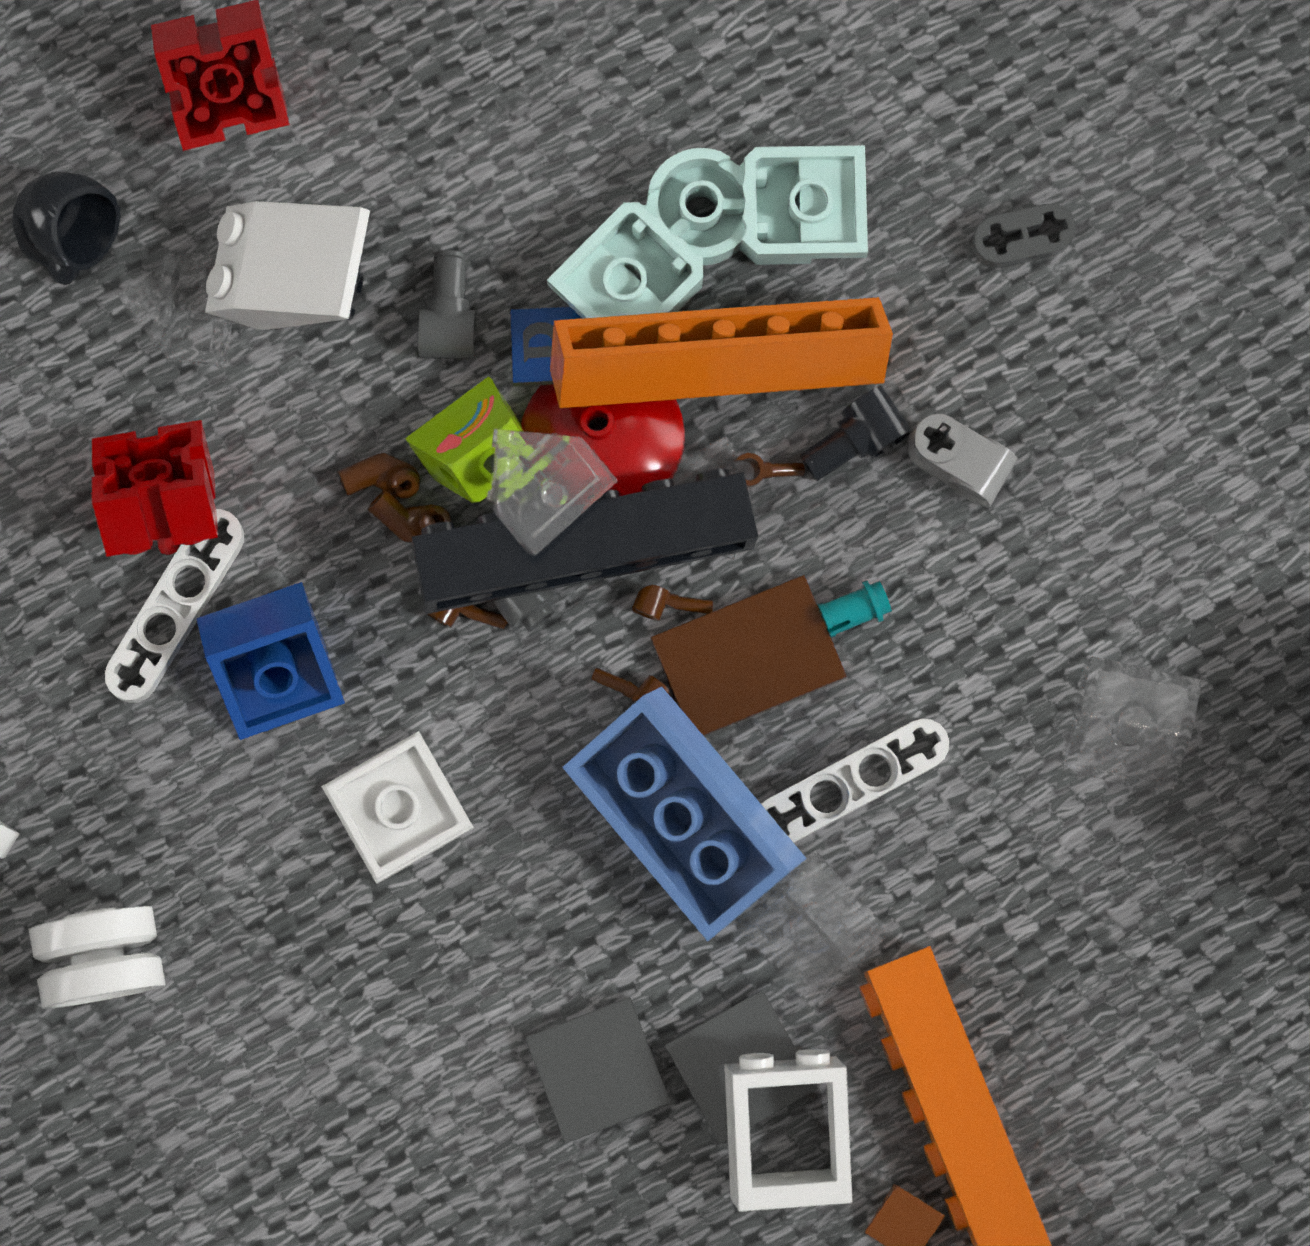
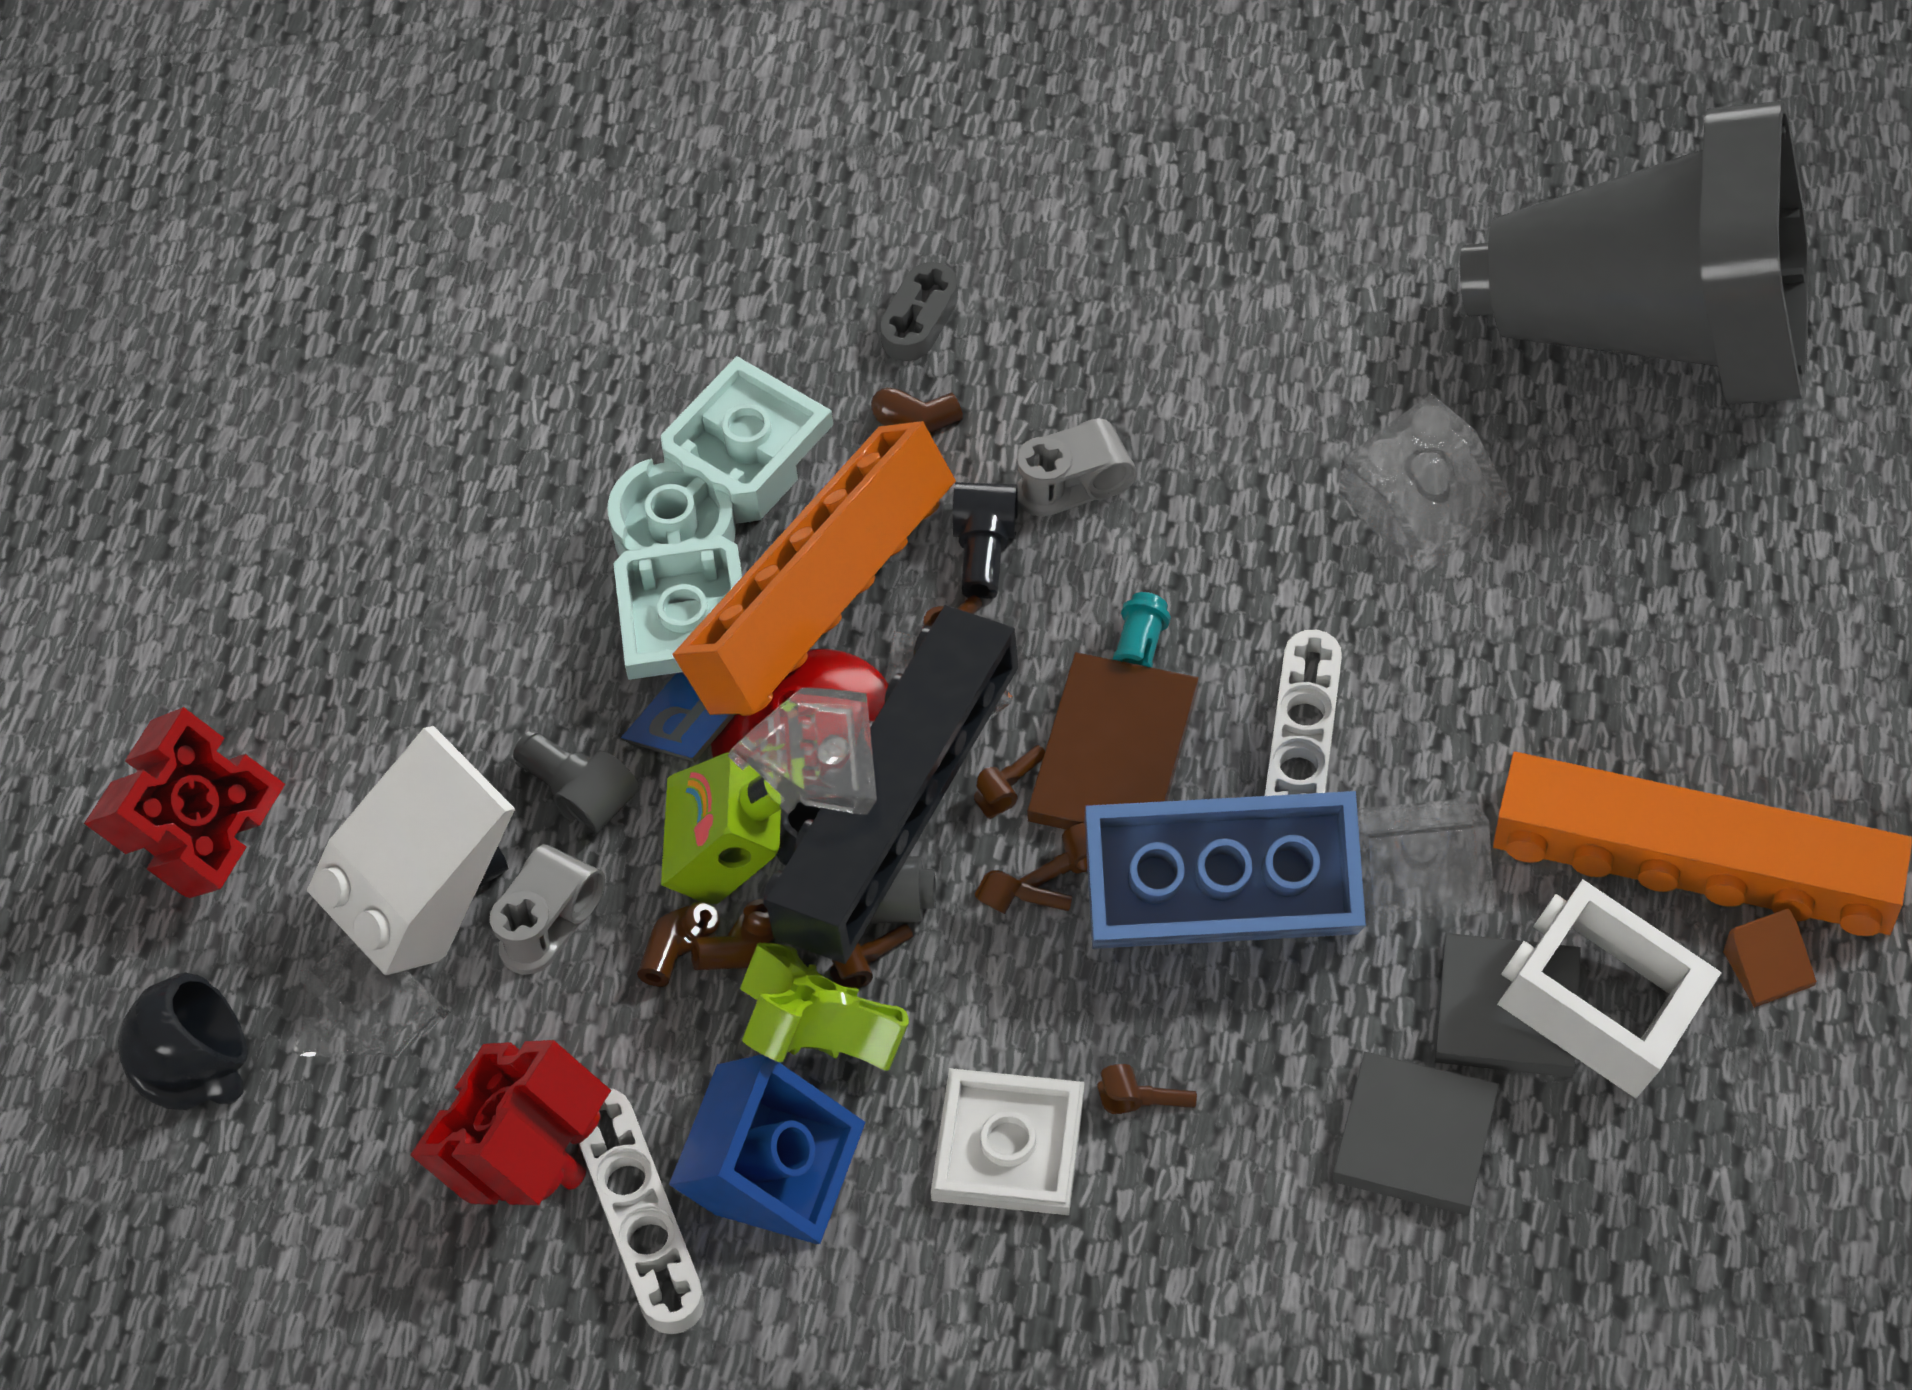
camera: 45 degrees left, 25 degrees down
(342, 370) = (544, 908): none -> light grey piece
(379, 618) = (811, 1012): none -> lime piece
(486, 855) = (1122, 1094): none -> reddish brown hand
(581, 664) = (1000, 888): none -> reddish brown hand
(923, 302) = (897, 407): none -> reddish brown arm

